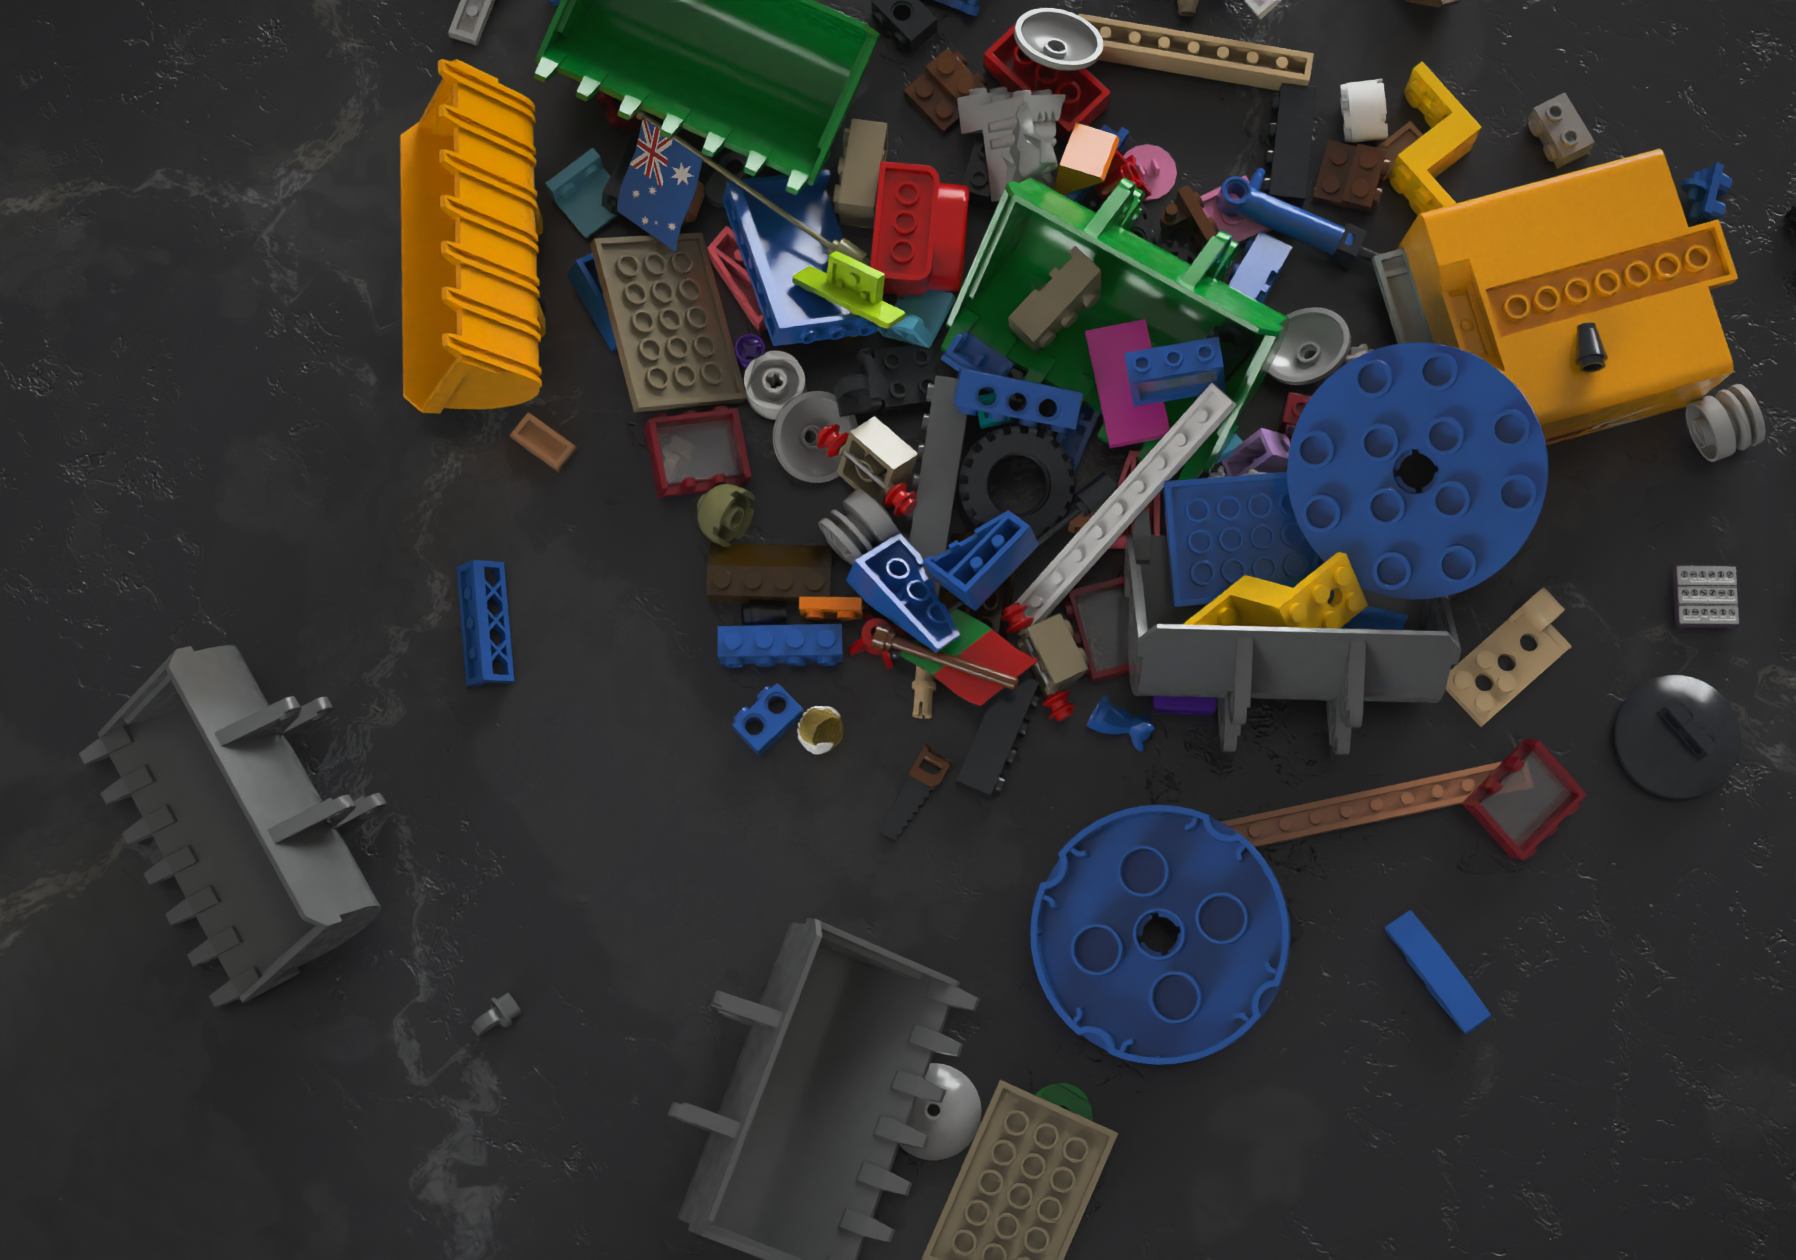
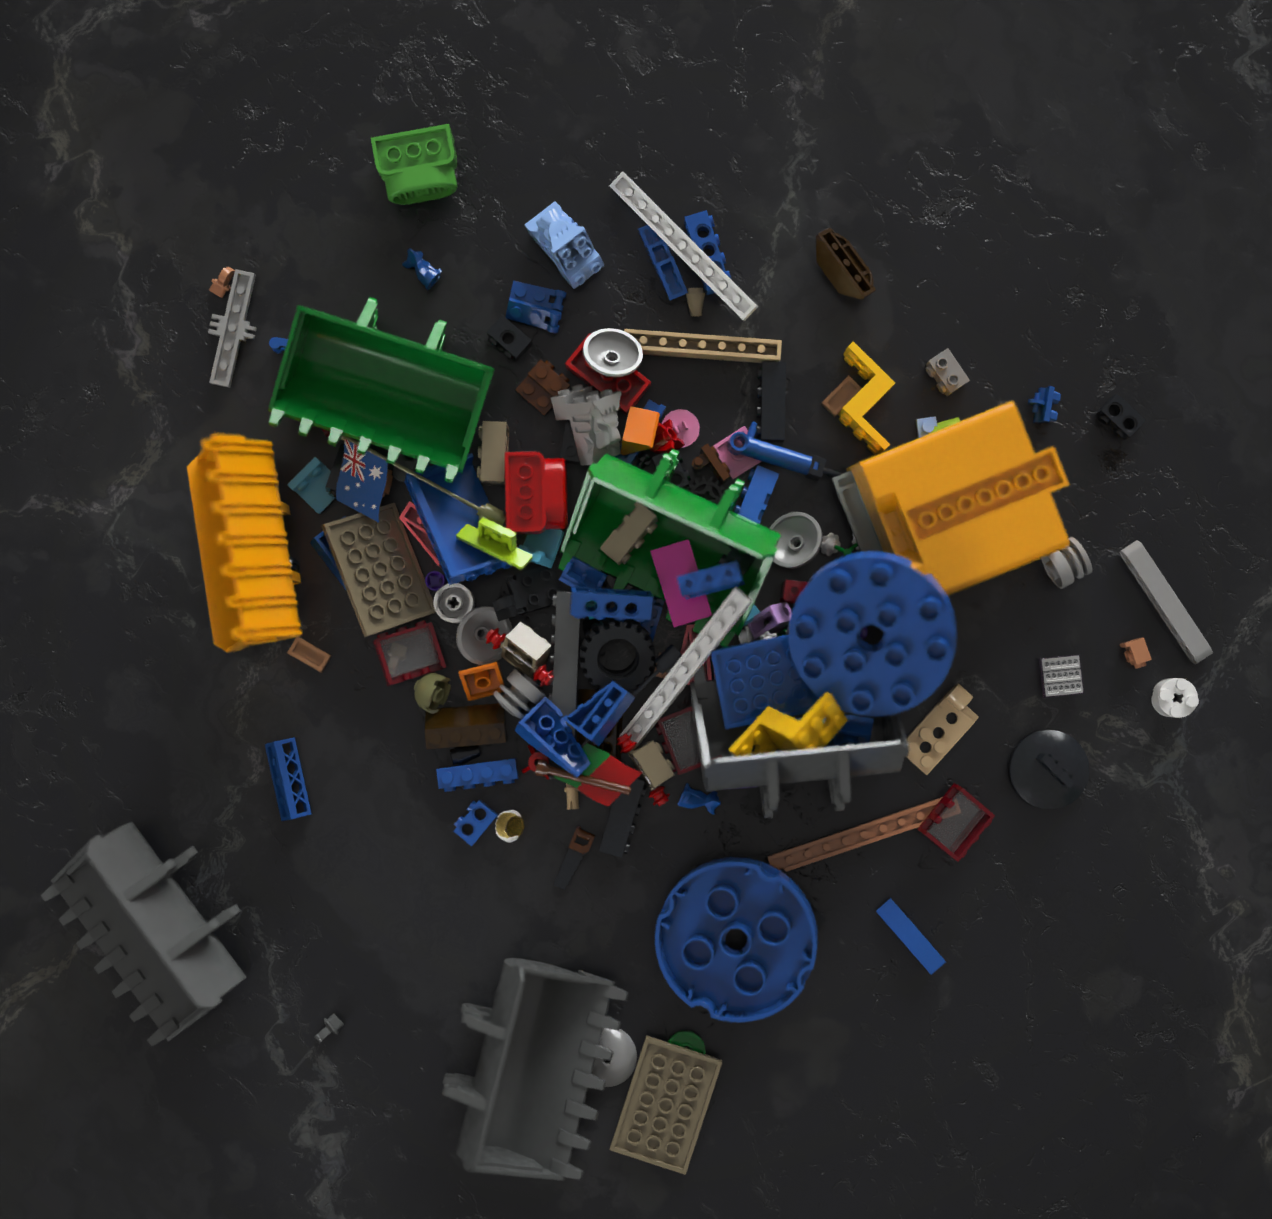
camera: 10 degrees left, 10 degrees up
(802, 504) = (482, 680): none -> orange slope
(831, 608) = (515, 747): orange plate -> none
(1351, 176) = (813, 418): reddish brown plate -> none
(1364, 111) = (819, 374): white brick -> none
(1589, 349) = (976, 545): black cone -> none

